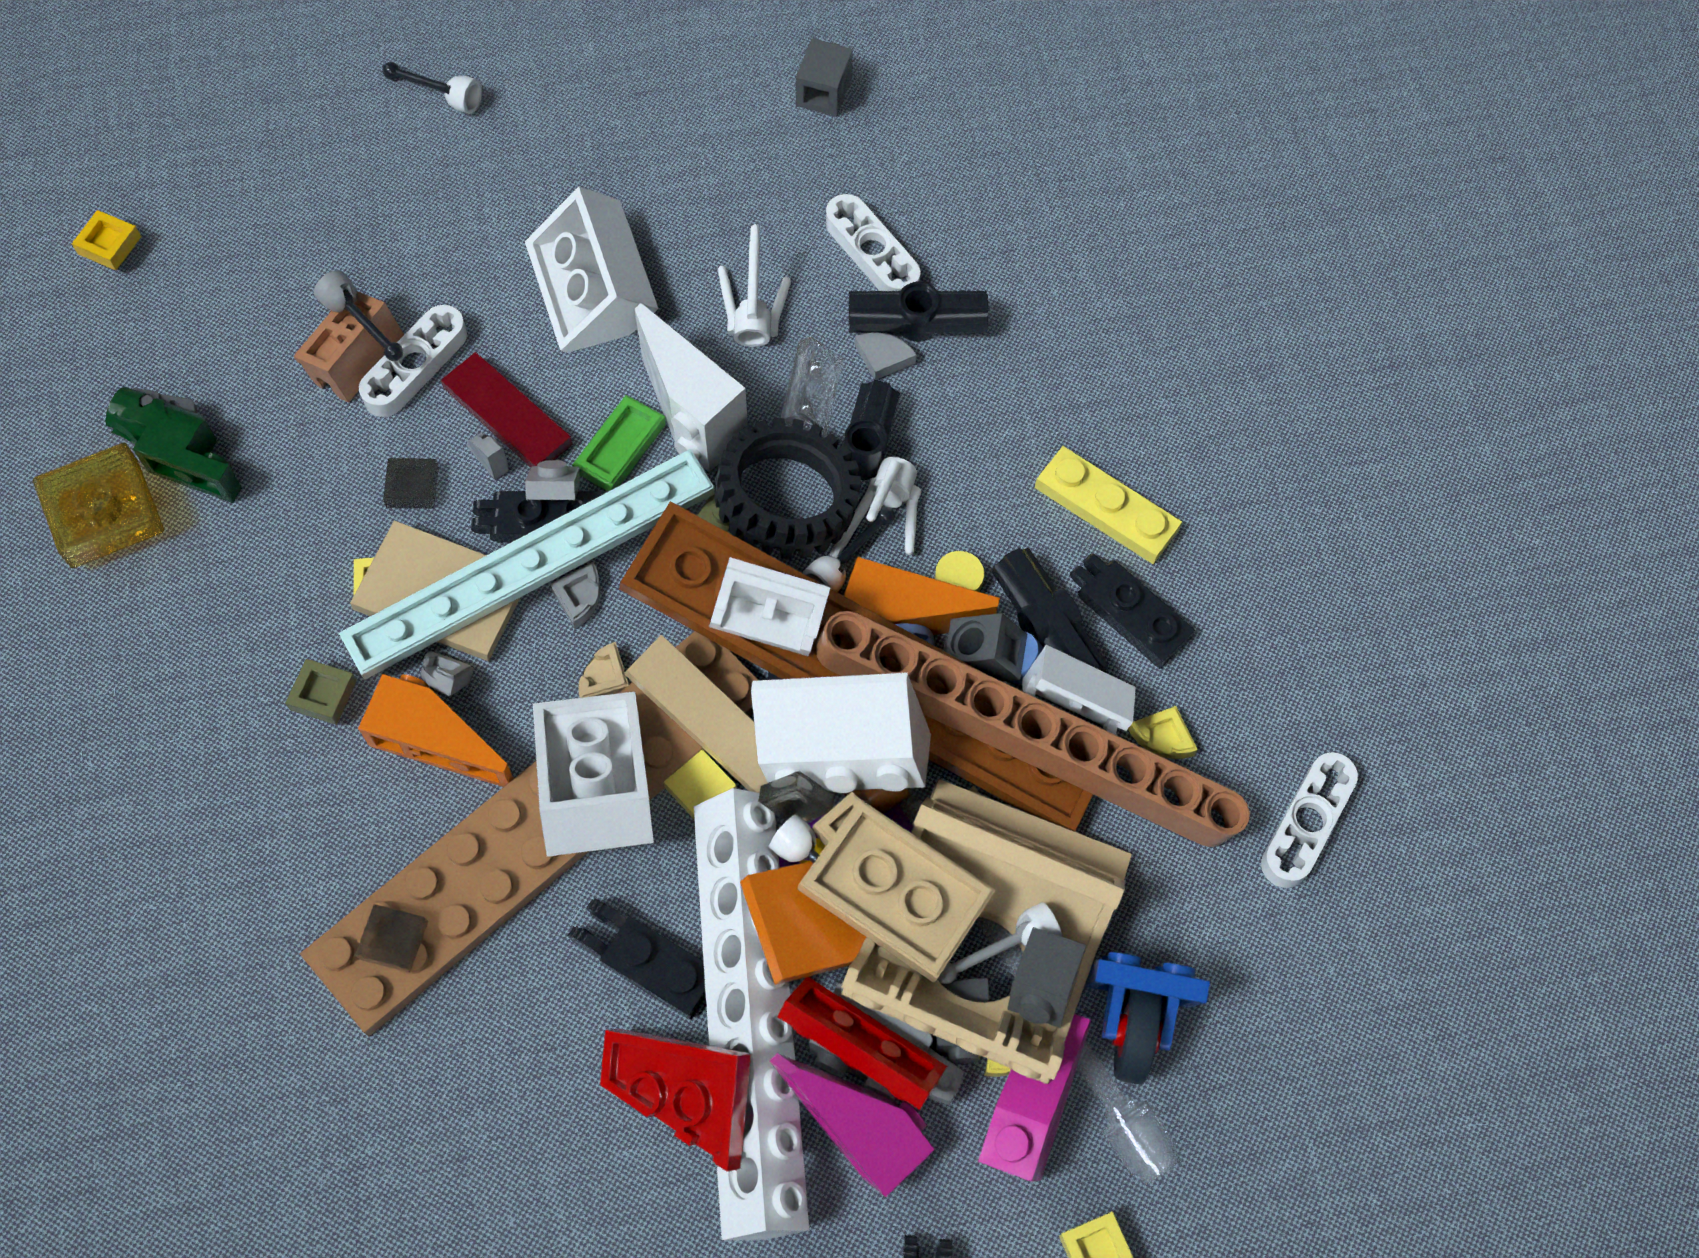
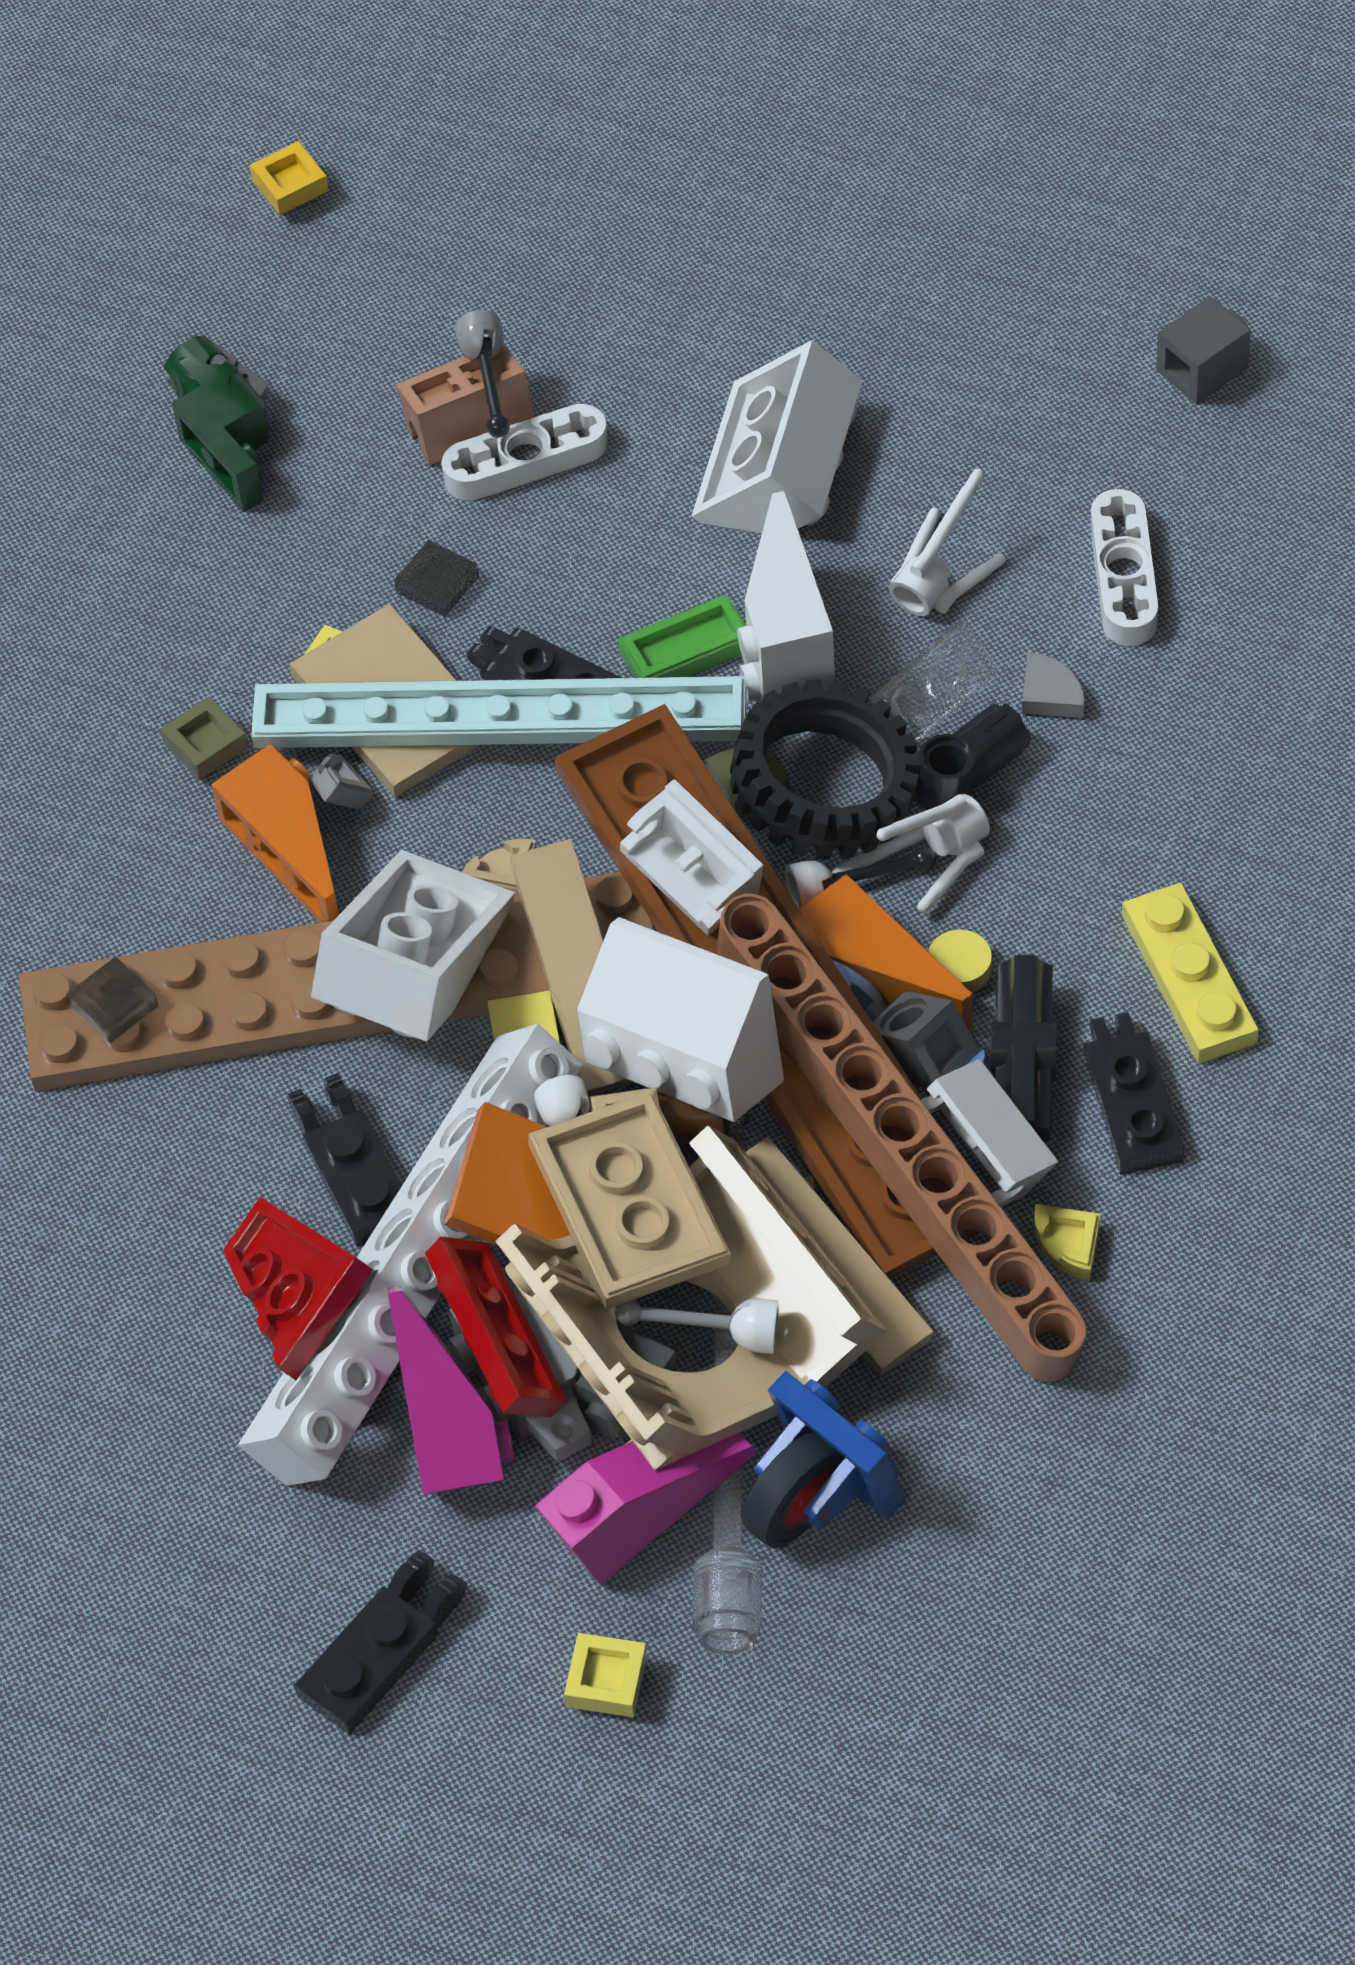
camera: 40 degrees right, 10 degrees down
(71, 499) = (105, 445): clear yellow brick -> none
(460, 92) = (766, 177): white hinge -> none
(489, 454) = (536, 588): light grey tile -> none
(506, 411) = (586, 553): dark red tile -> none
(552, 481) = (580, 643): light grey plate -> none
(578, 593) = (531, 776): light grey tile -> none
(796, 795) = (598, 1064): clear smoke tile -> none
(942, 311) = (1118, 658): black piece -> none
(1045, 977) = (722, 1363): dark grey brick -> none
(1337, 796) = (1175, 1380): white beam -> none

